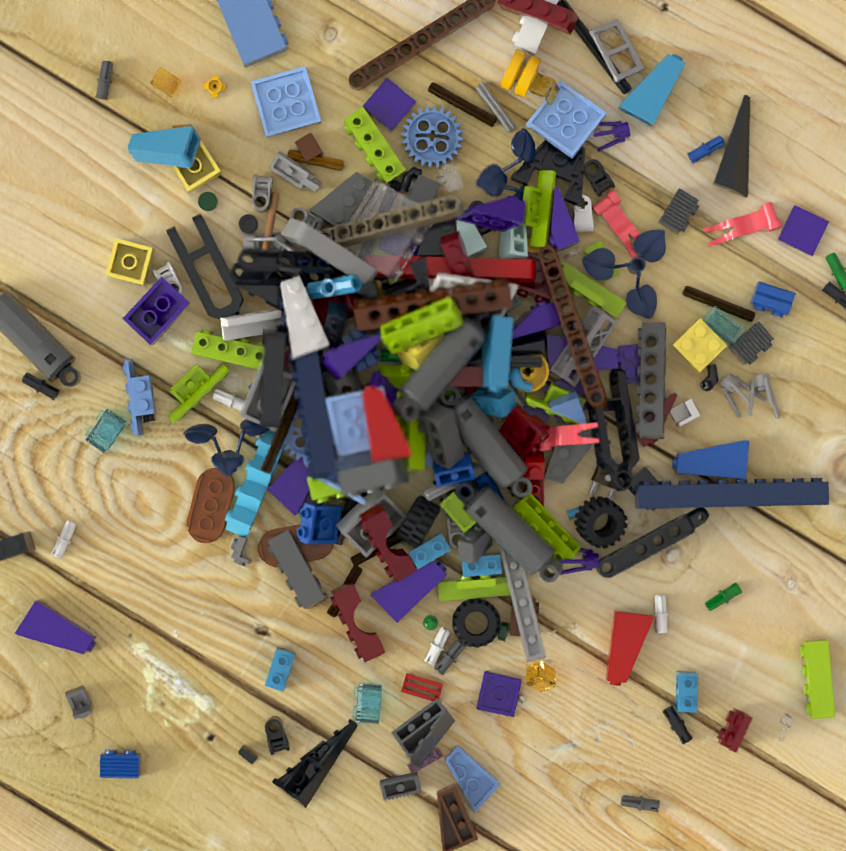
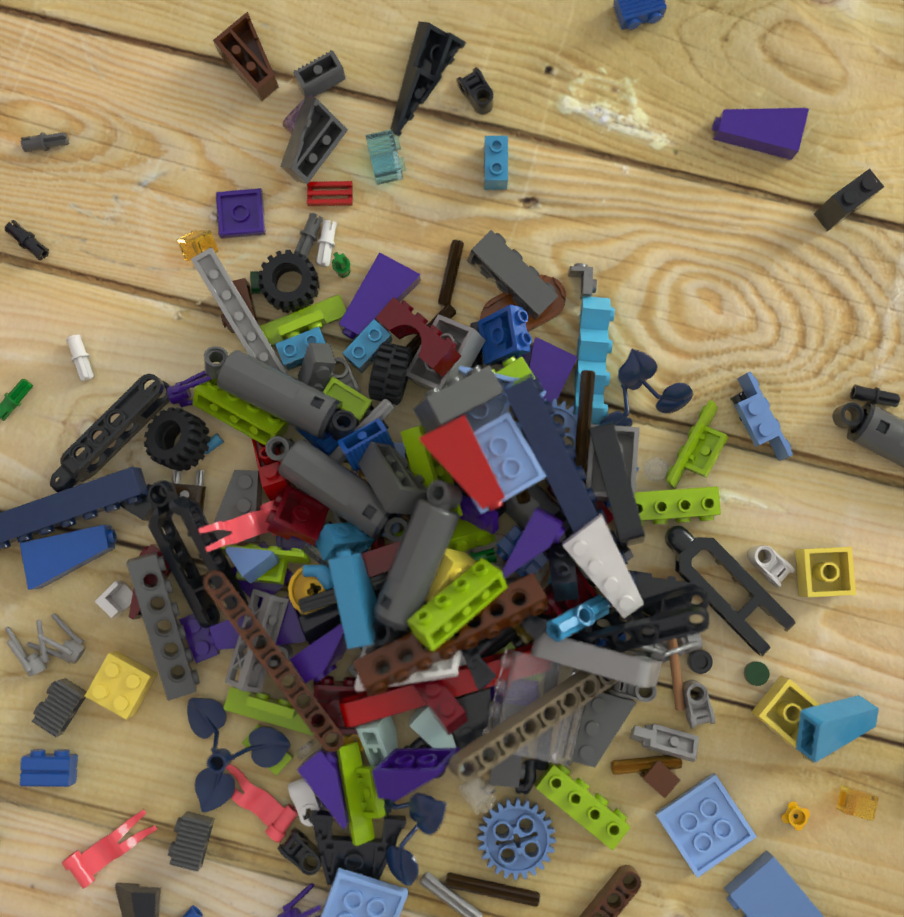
camera: 160 degrees right, 5 degrees down
(64, 539) = (787, 231): white axle -> none
(79, 702) = (708, 60): flat silver bracket -> none
(105, 430) = (783, 368): clear light blue brick -> none
(156, 311) = (776, 522): dark purple slope -> none
(210, 506) = (634, 318): dark orange tile -> none
(228, 399) = (655, 448): white axle -> none
(247, 754) = (501, 60): black tile -> none
(248, 324) = (662, 542): white panel -> none
(367, 643) = (406, 221): dark red arch -> none
(389, 104) = (580, 861): dark purple tile -> none
(471, 777) = (240, 110): medium blue wing -> none
(625, 644) = (110, 311): red slope -> none
(686, 691) = (24, 278): dark azure brick -> none
(712, 301) = (113, 742): dark brown axle -> none
(712, 378) = (97, 648): black arm -> none
(723, 325) = (97, 719): clear light blue brick -> none
(803, 230) = (35, 864): dark purple tile -> none

